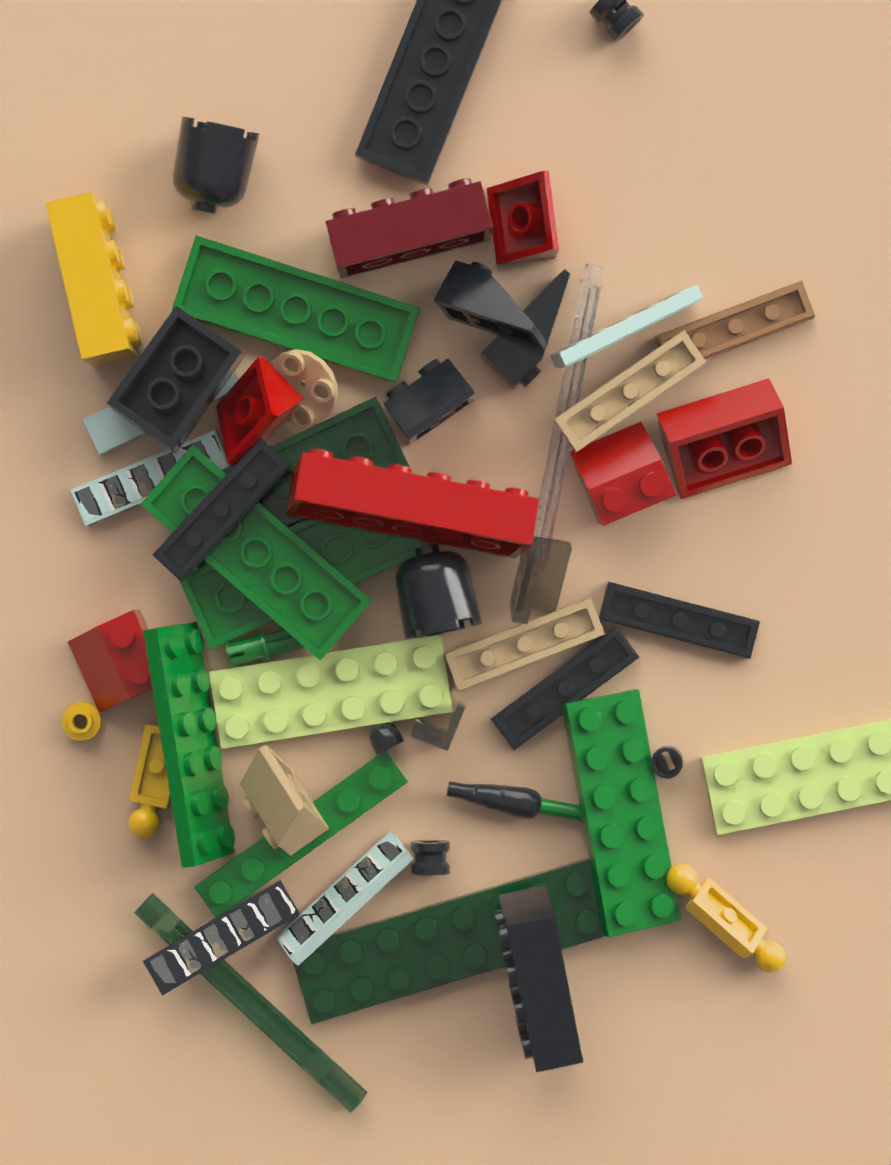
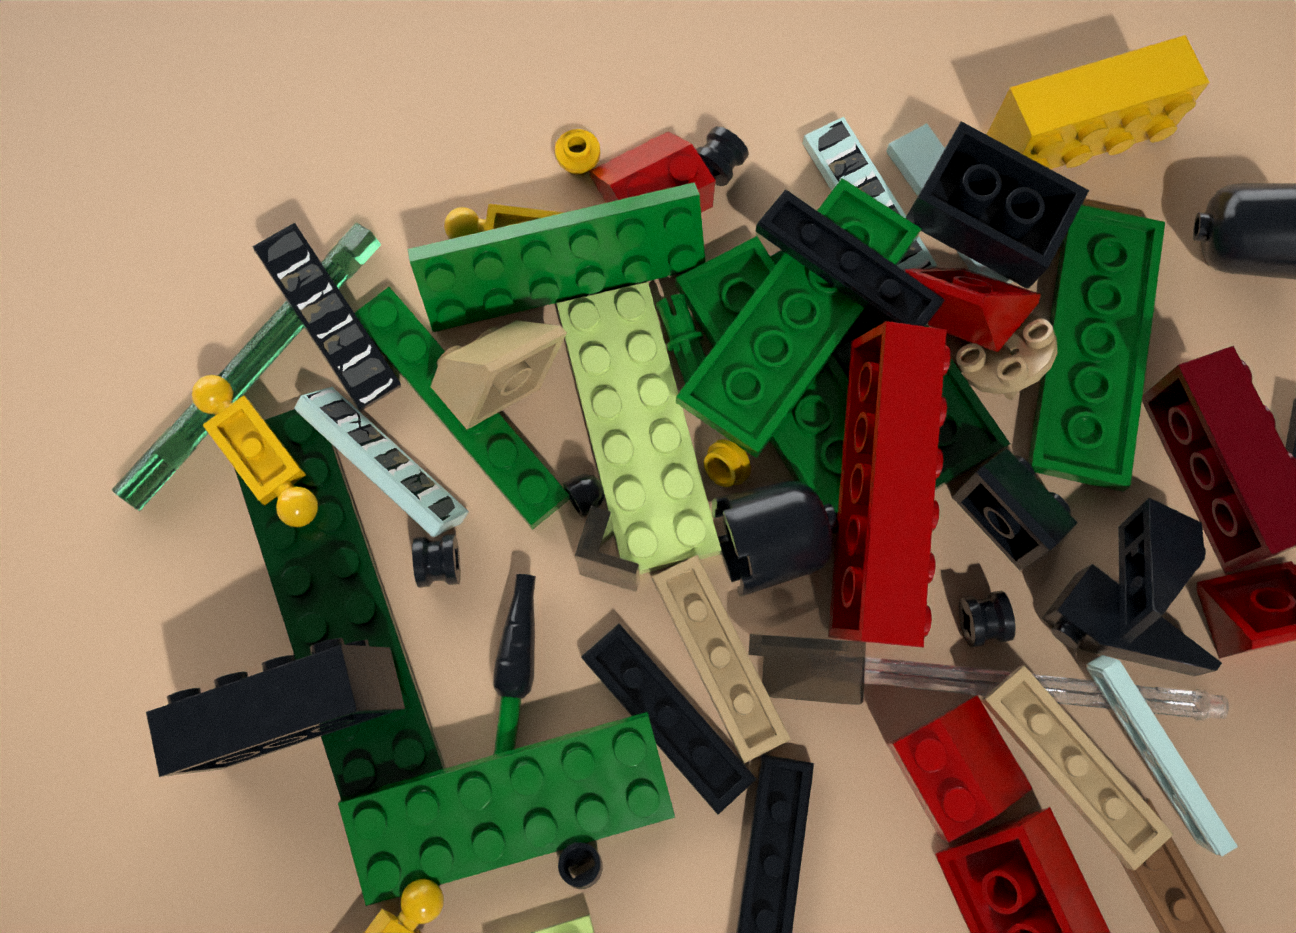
camera: 80 degrees right, 15 degrees down
(100, 600) = (722, 154): none -> black wheel
(332, 997) = (254, 450): none -> yellow plate
(372, 623) = (727, 463): none -> yellow plate
(513, 436) = (987, 618): none -> black wheel

